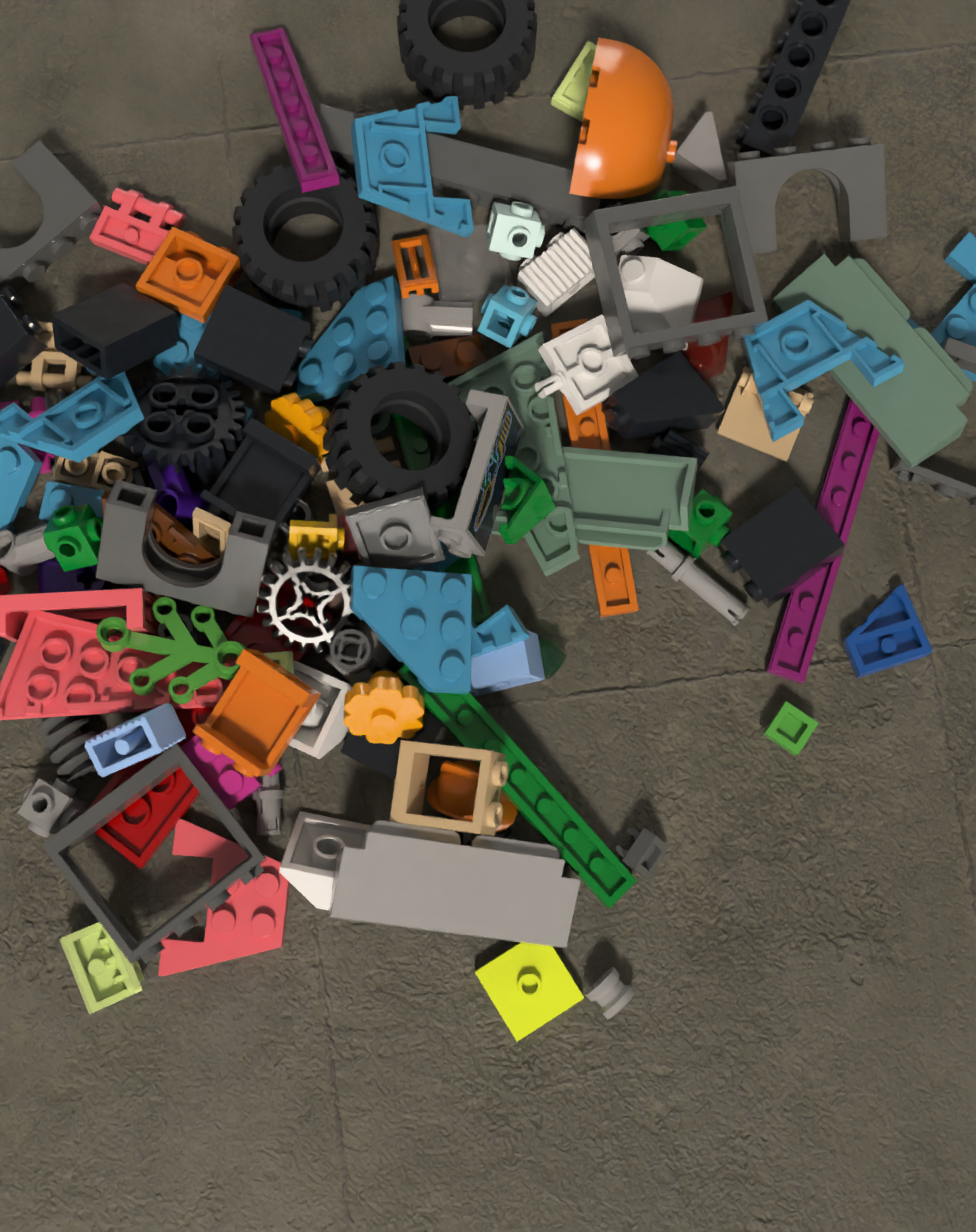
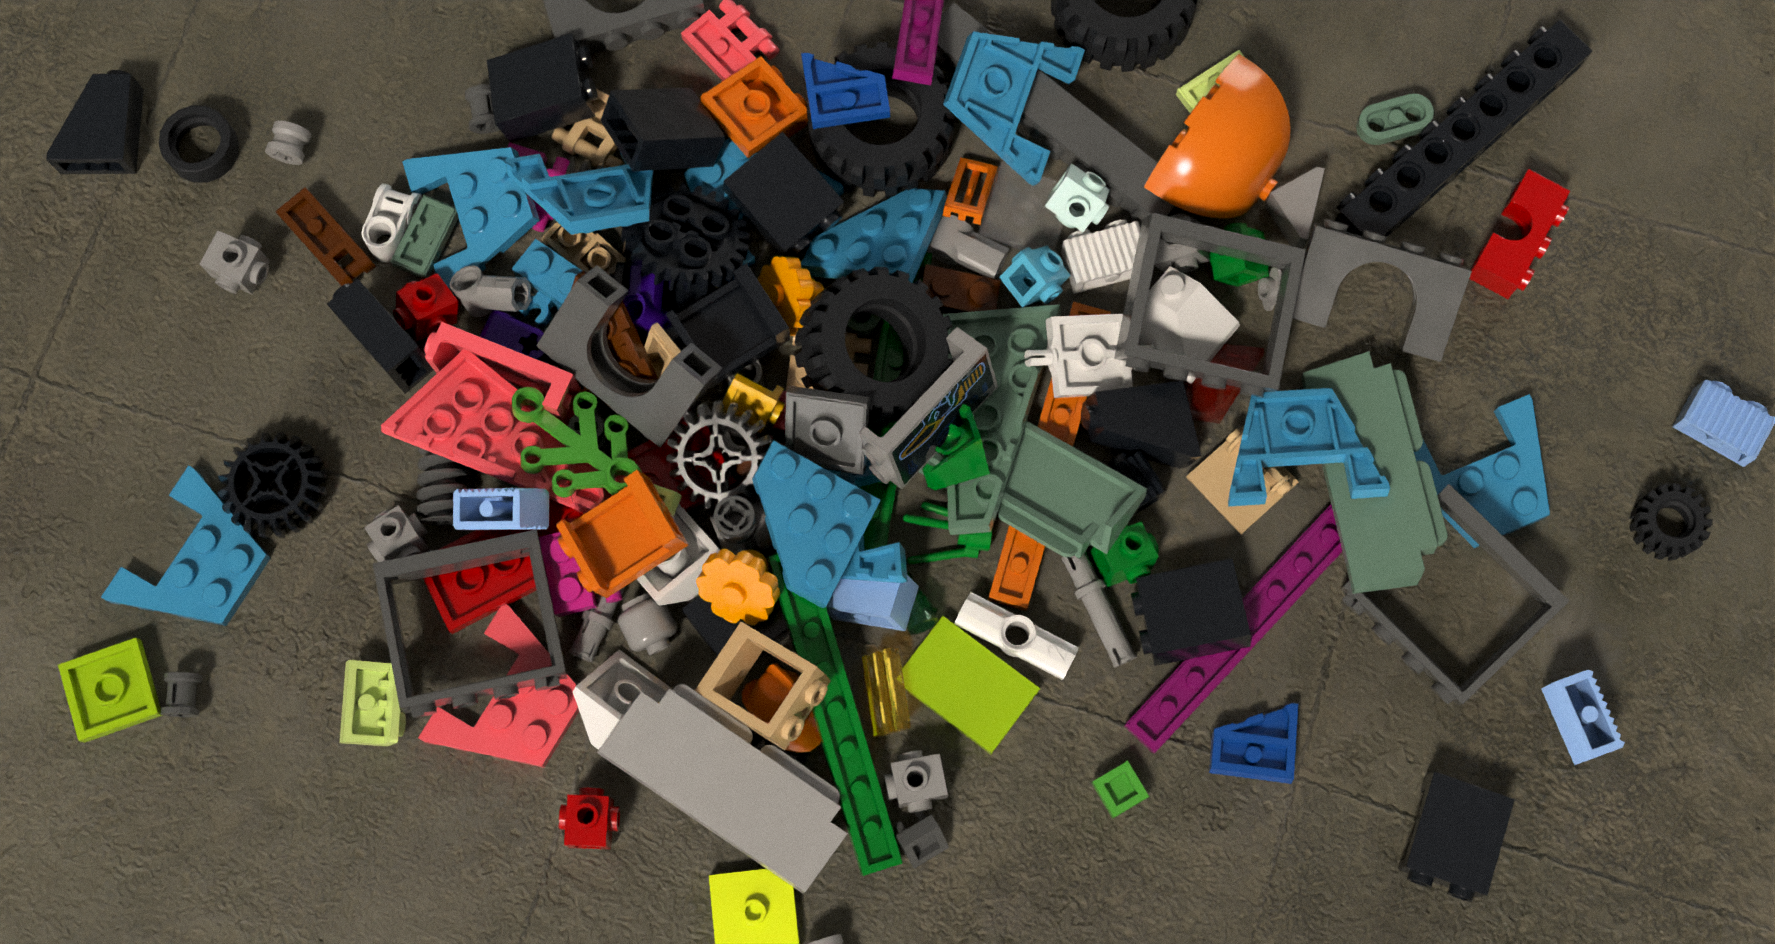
camera: 30 degrees right, 5 degrees down
(74, 536) = (535, 299): green brick -> none
(264, 225) = (843, 94): none -> blue wing
(314, 779) = (647, 624): none -> light grey head
(343, 990) = (596, 833): none -> red brick
(549, 742) = (886, 692): none -> clear yellow tile
(563, 577) = (972, 542): none -> green plant
(617, 699) = (967, 685): none -> lime tile
(631, 802) = (928, 769): none -> light grey brick
(666, 638) = (1040, 649): none -> white piece
(713, 237) = (1268, 288): none -> light grey plate
(745, 47) = (1392, 119): none -> sand green plate
(901, 70) = (1534, 208): none -> red arch

